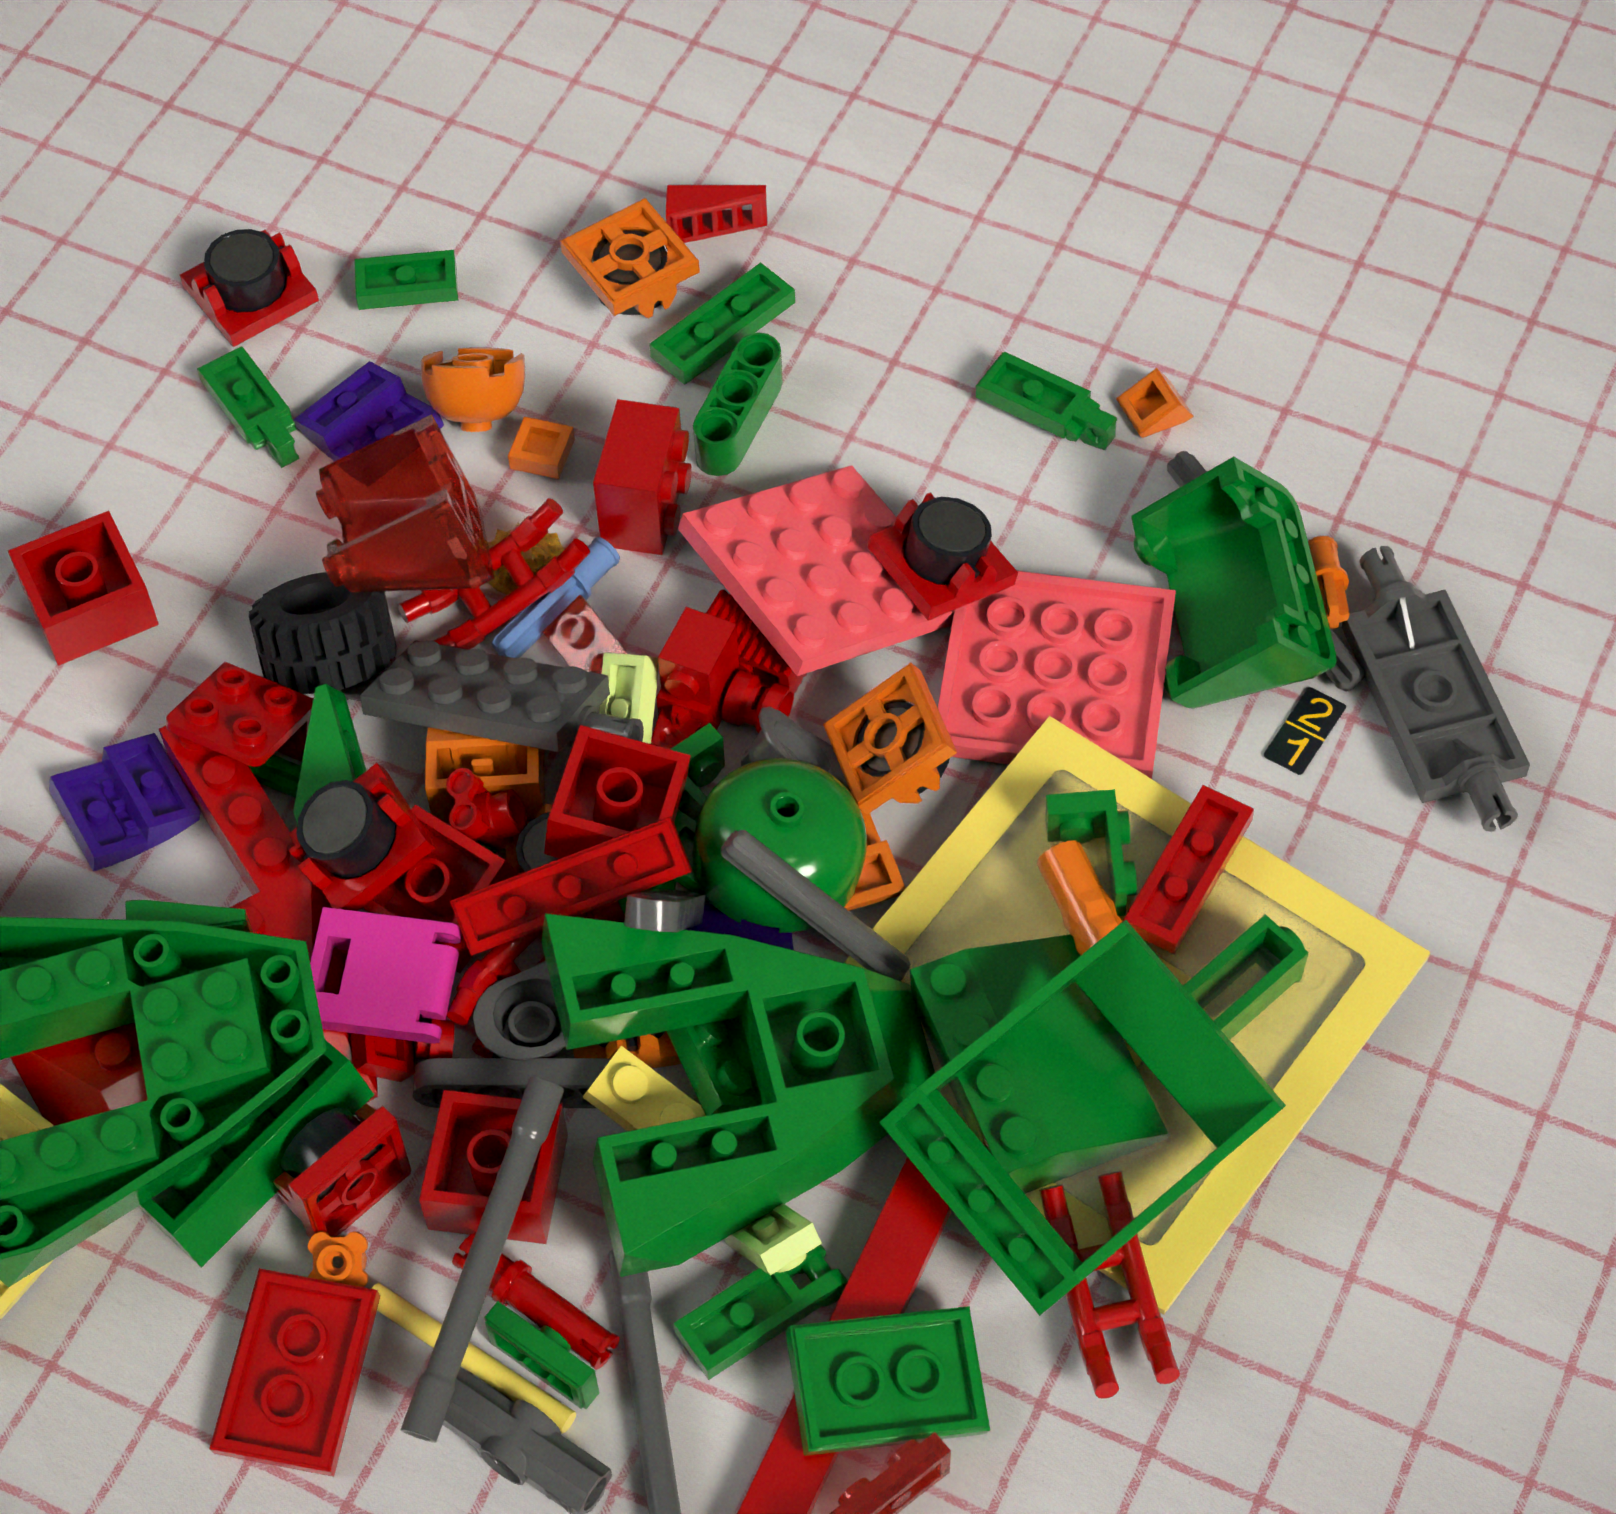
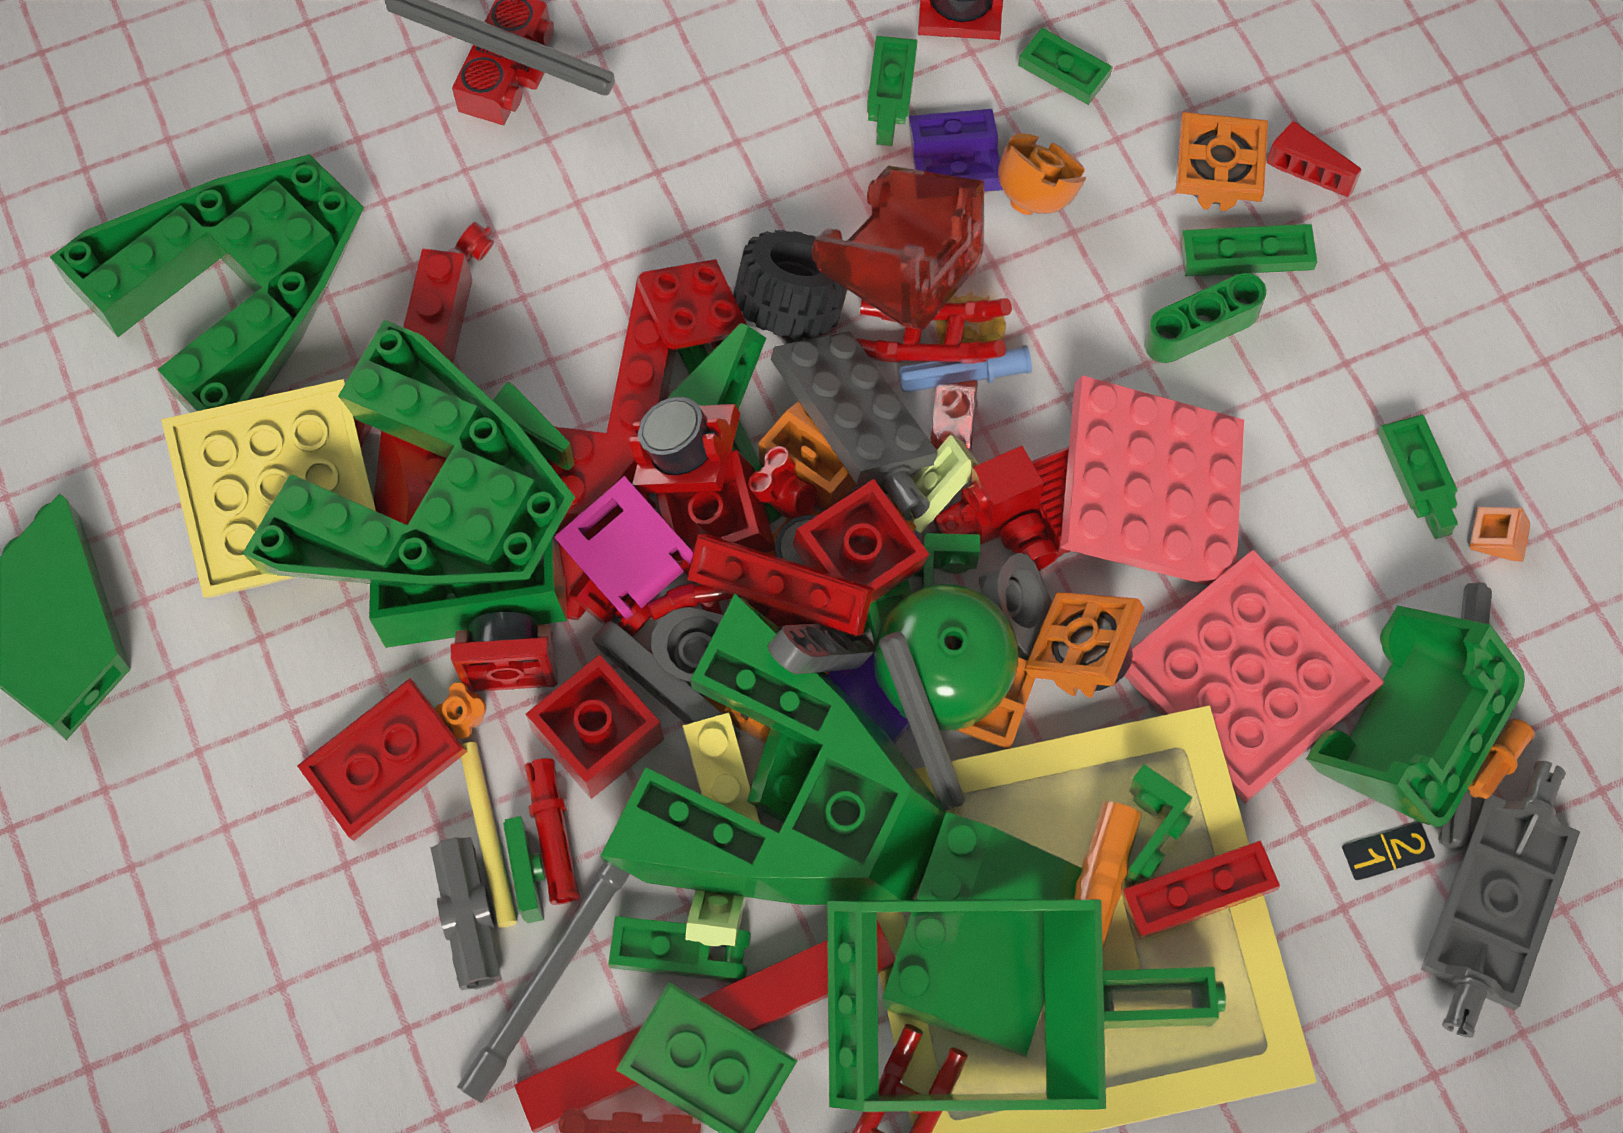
camera: 40 degrees right, 10 degrees up
(83, 587) = (678, 141): red brick -> none
(124, 801) = (588, 305): dark purple slope -> none
(437, 1383) = (441, 838): dark grey piece -> none
(541, 447) = (1048, 253): orange plate -> none
(641, 477) = (1087, 325): red brick -> none
(945, 555) = (1240, 537): piece -> none

